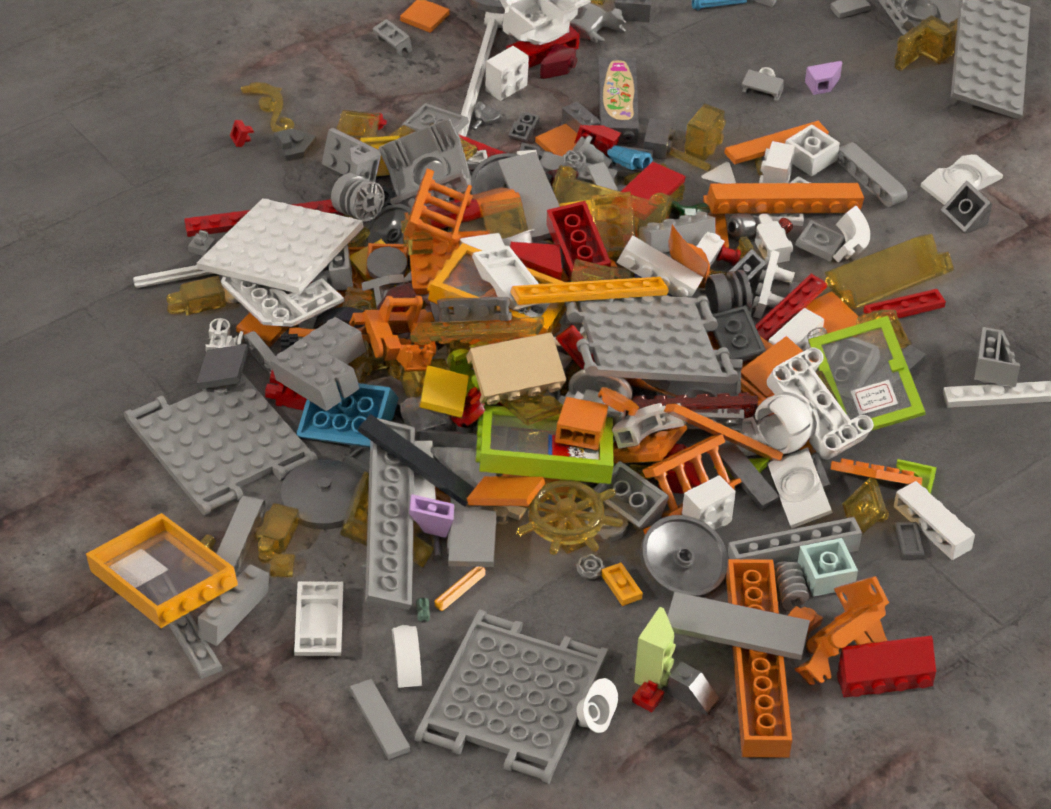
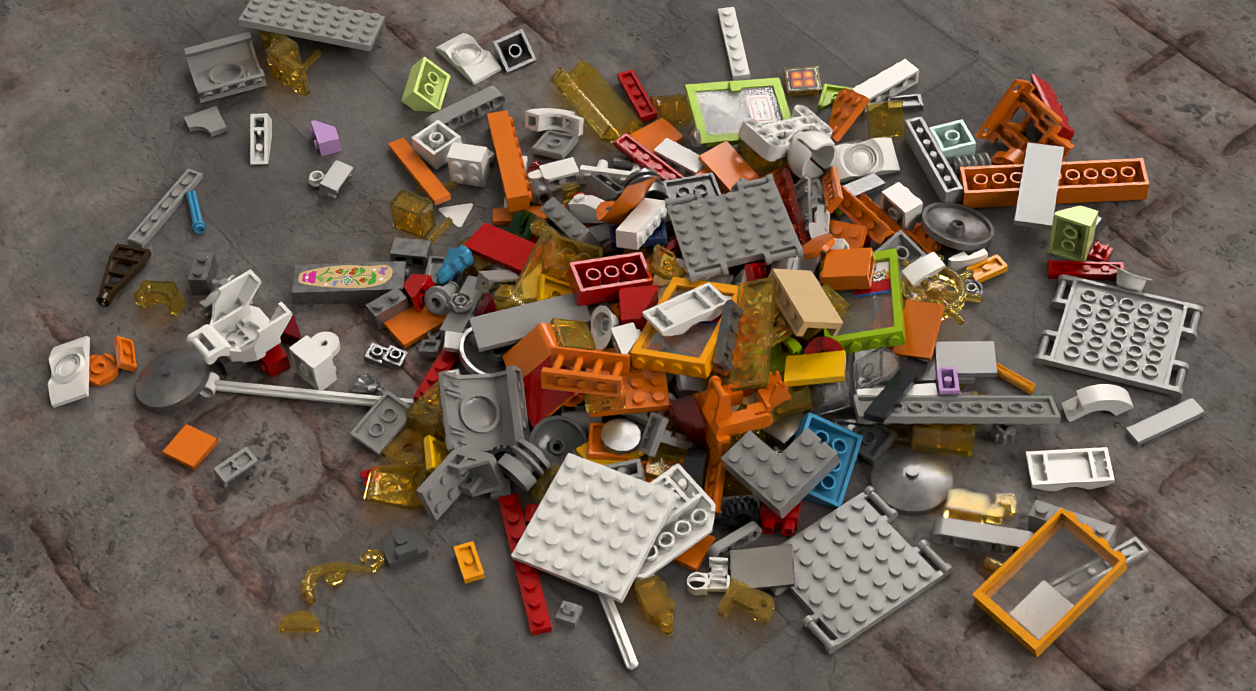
camera: 85 degrees left, 5 degrees up
(186, 357) = (748, 599): none -> clear yellow piece
(222, 85) = (299, 622): none -> clear yellow tile
(240, 132) = (392, 593): red tile -> none
(267, 180) = (469, 562): none -> light orange plate
(541, 89) = (330, 340): none -> white piece
(586, 491) = (922, 268): none -> white slope
(588, 290) = (694, 258): light orange tile -> none
(622, 676) = (1083, 269): none -> red tile
(631, 563) = (962, 260): none -> white slope
(821, 34) = (260, 138): none -> white slope
(906, 145) = (425, 87): none -> yellowish green slope
(938, 63) = (311, 59): none -> clear yellow piece
(938, 447) = (802, 81): none -> tile
(995, 360) = (707, 40): light grey wedge -> none

